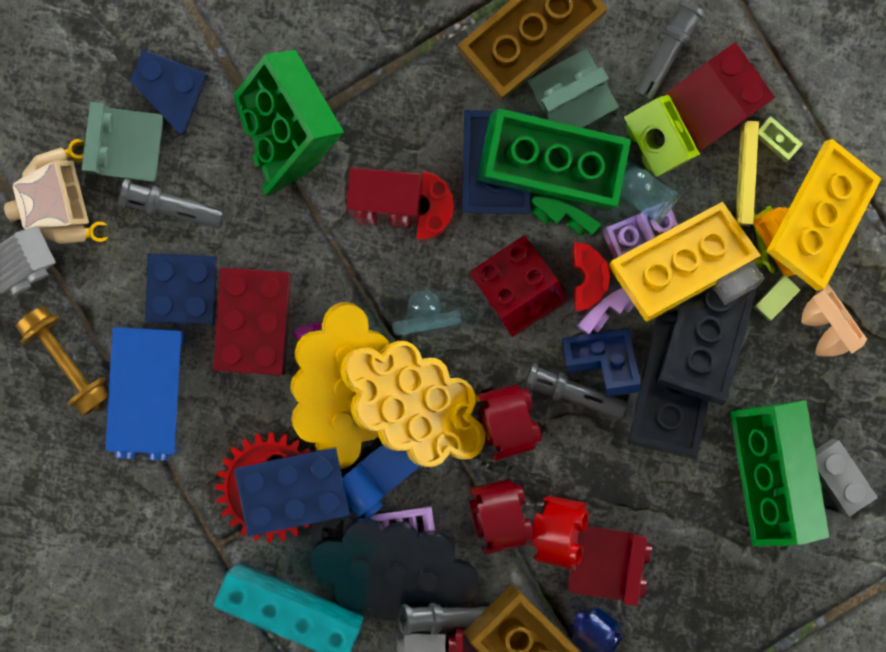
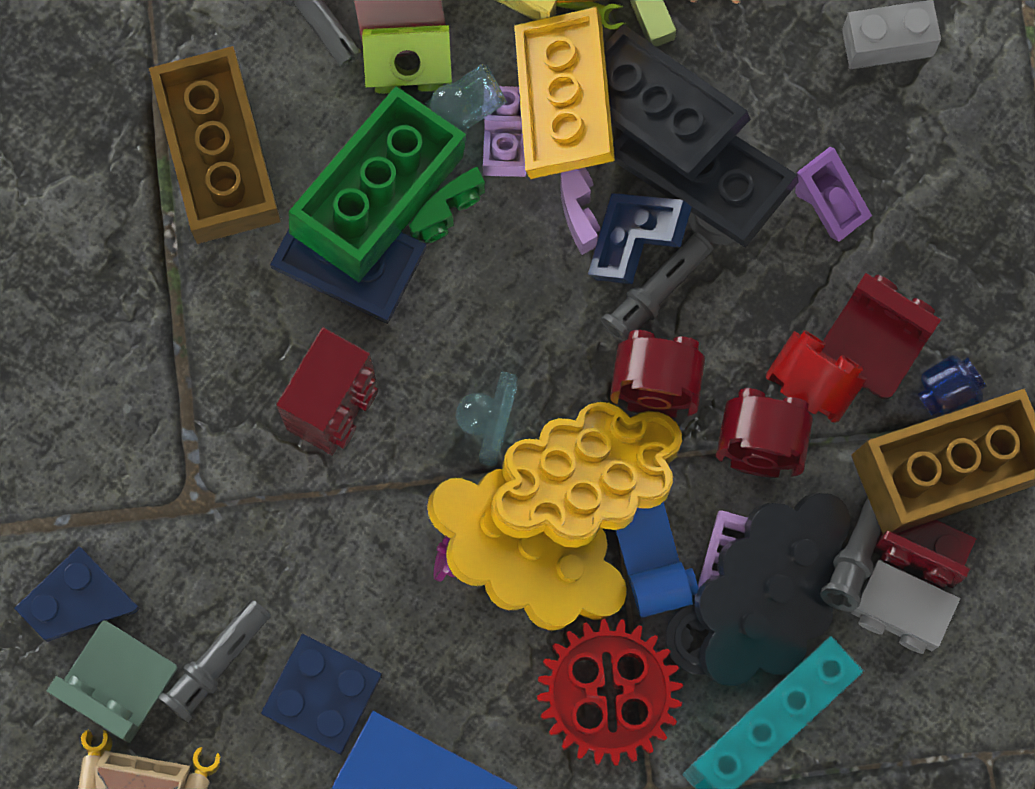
camera: 70 degrees left, 10 degrees down
(252, 321) = (401, 622): dark red brick -> none
(285, 119) = (180, 475): green wedge -> none
(292, 491) = (627, 663): dark blue plate -> none
(441, 208) = (378, 342): red cylinder -> none
(519, 285) = (503, 294): dark red bracket -> none
(574, 91) = (306, 132): sand green bracket -> none
(594, 273) = (531, 201): red cylinder -> none
(698, 488) = (832, 194): none -> medium lavender slope
(738, 282) = (616, 44): clear piece -> none
(779, 474) = (858, 95): green brick -> none

